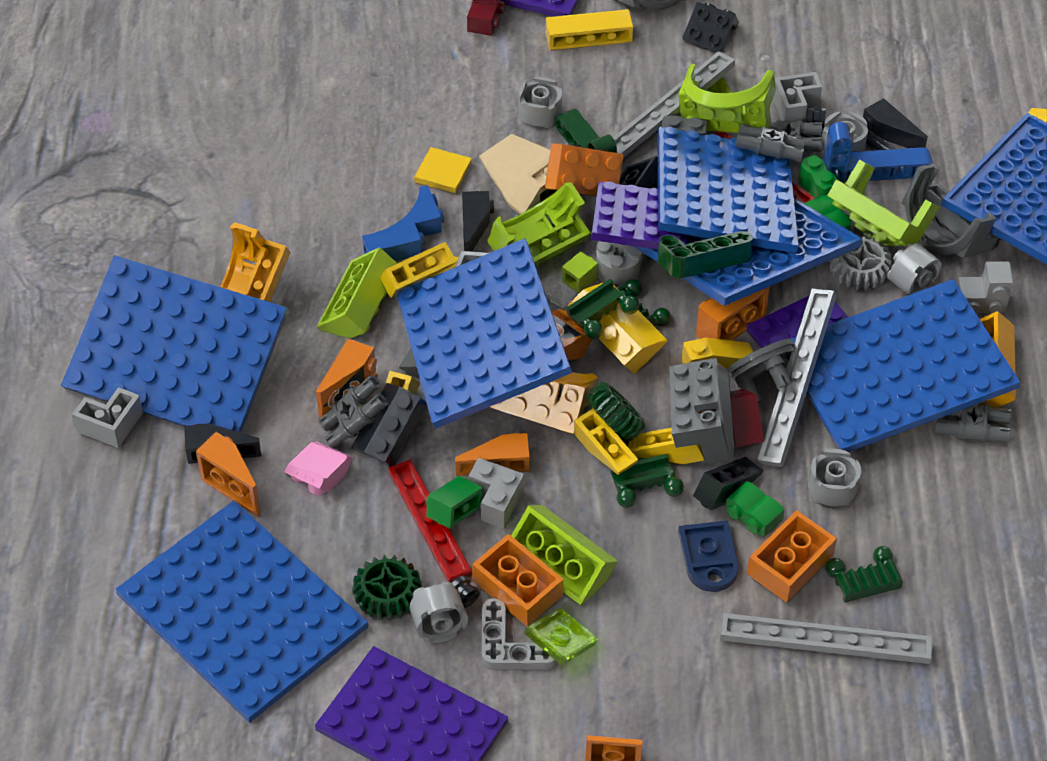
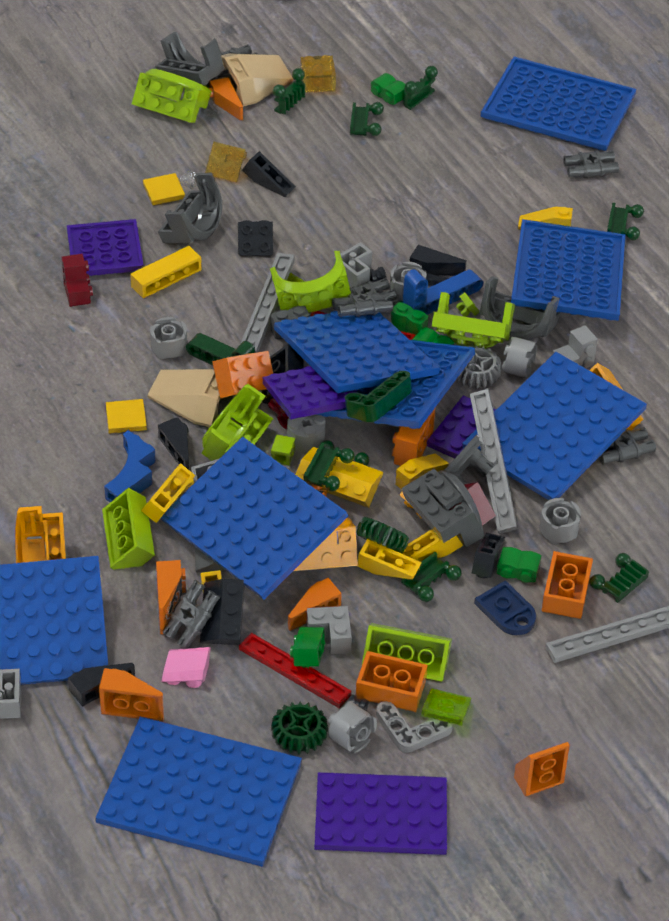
camera: 30 degrees left, 5 degrees down
(897, 188) = (467, 305): none -> lime tile

